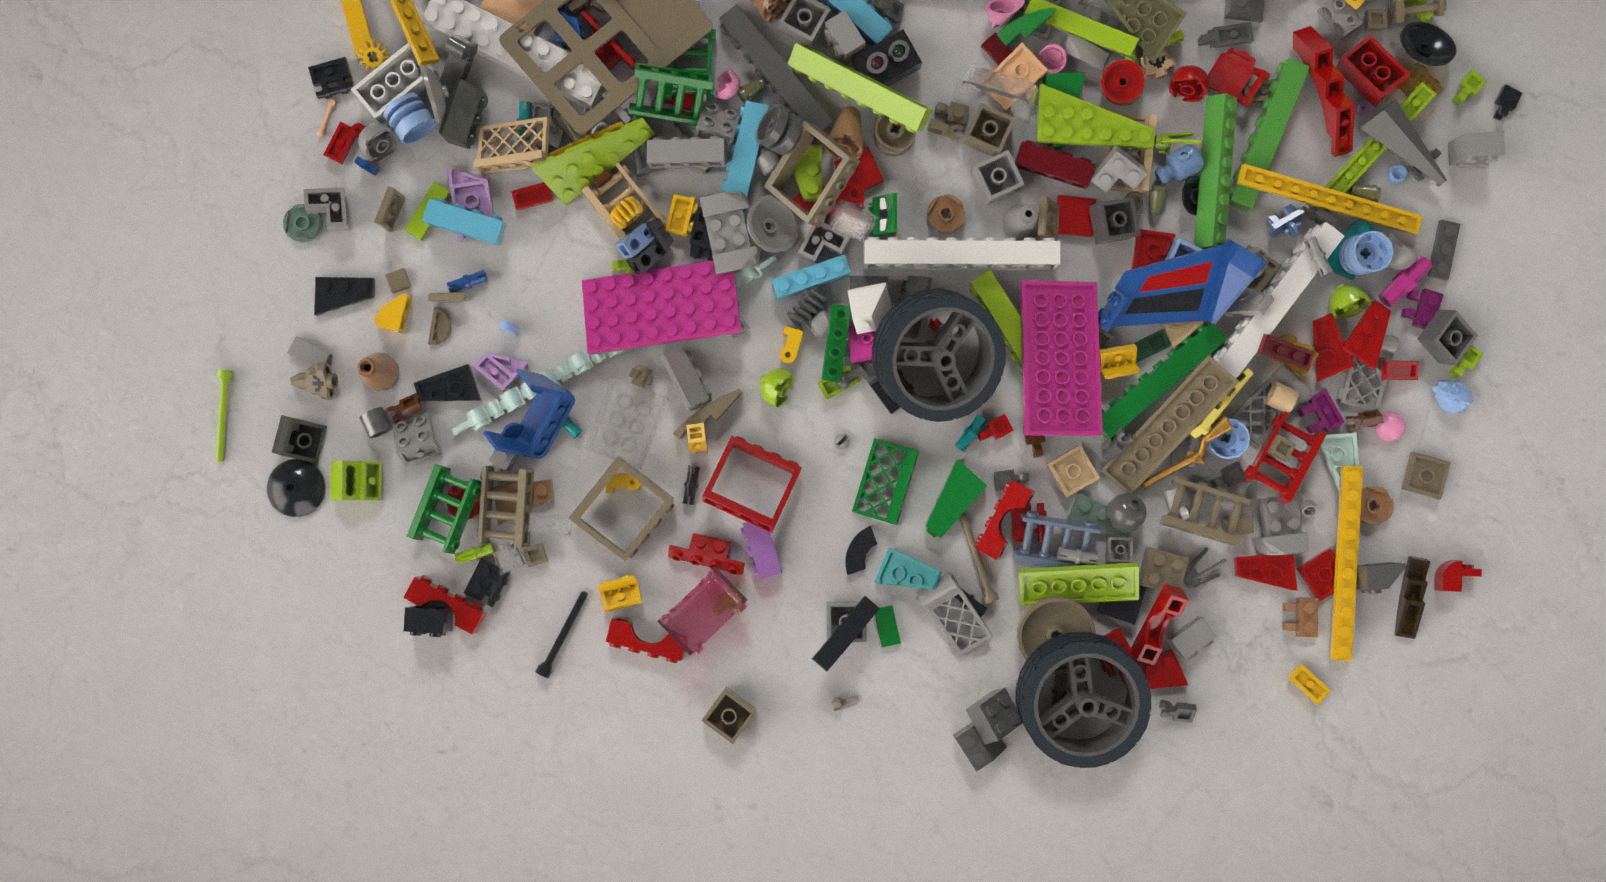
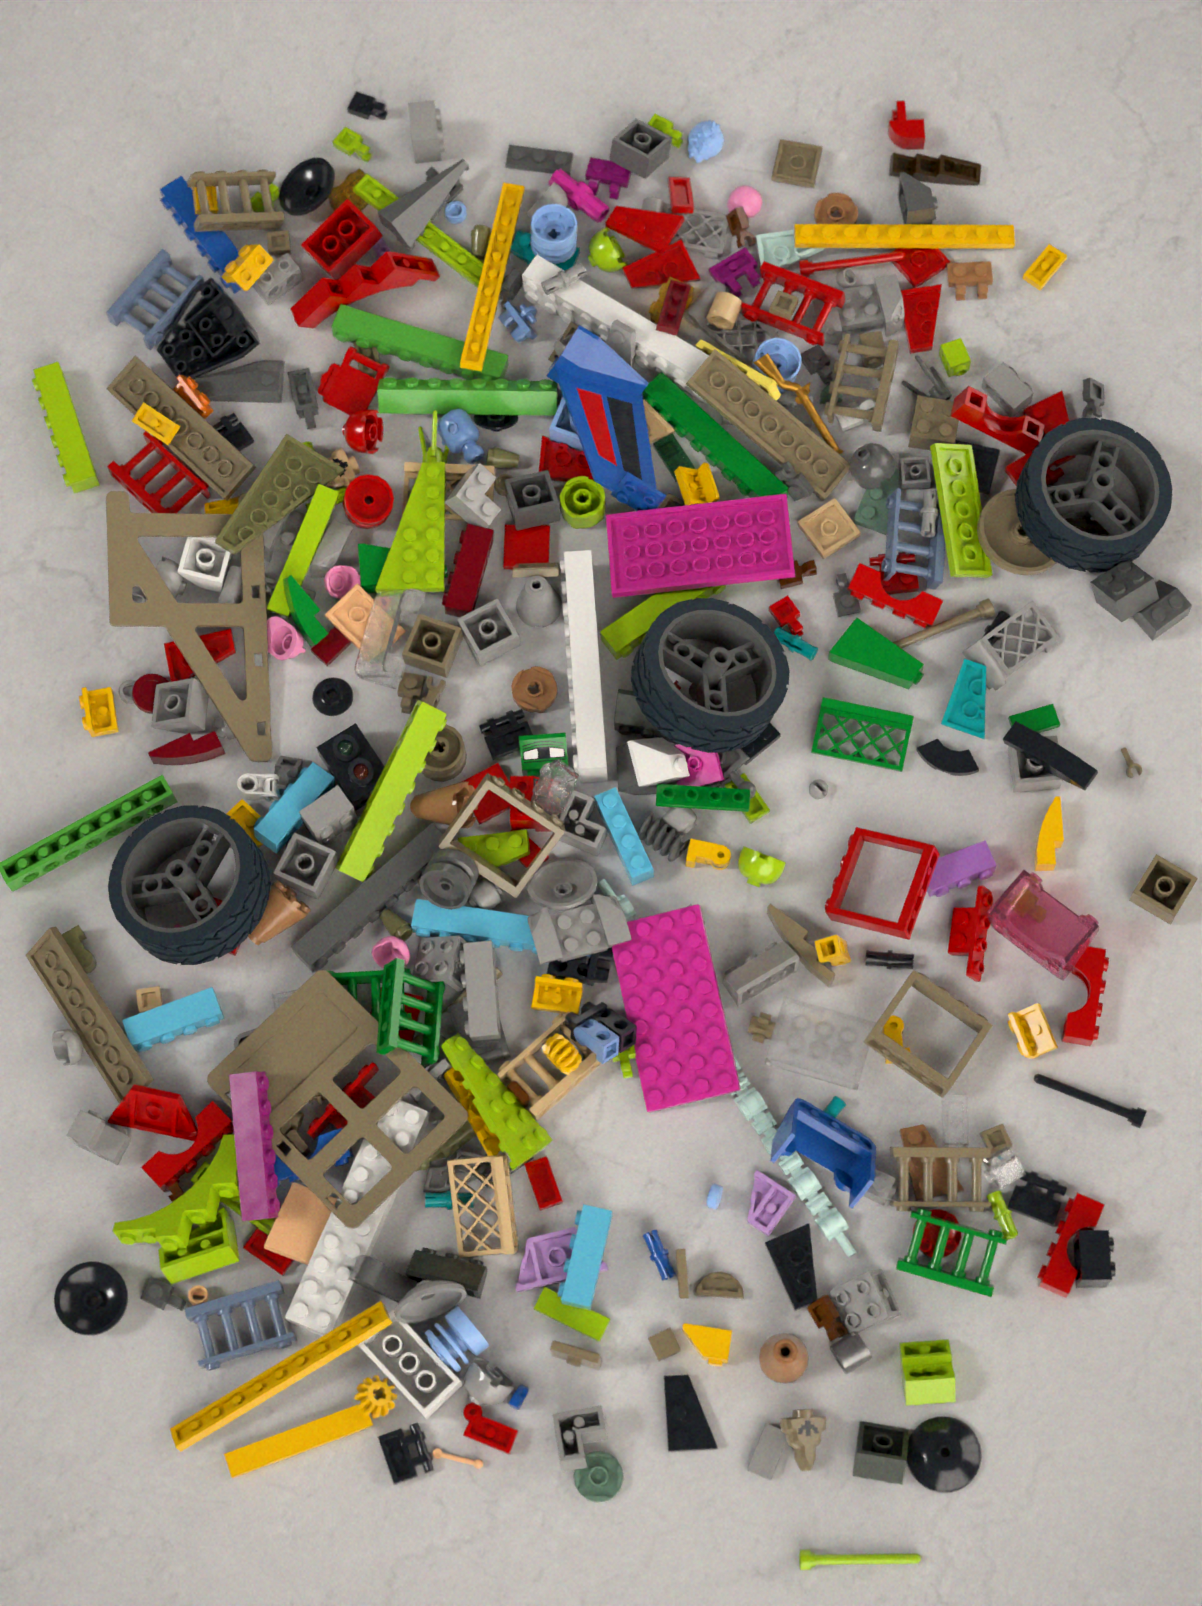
camera: 90 degrees left, 15 degrees down
(785, 627) = (1049, 837): none -> yellow slope
(901, 184) = (505, 741): none -> black plate
(956, 58) = (336, 705): none -> black piece
(1114, 254) = (582, 514): none -> lime brick
(1225, 595) = (955, 357): none -> lime brick
(1321, 476) = (808, 267): none -> red piece

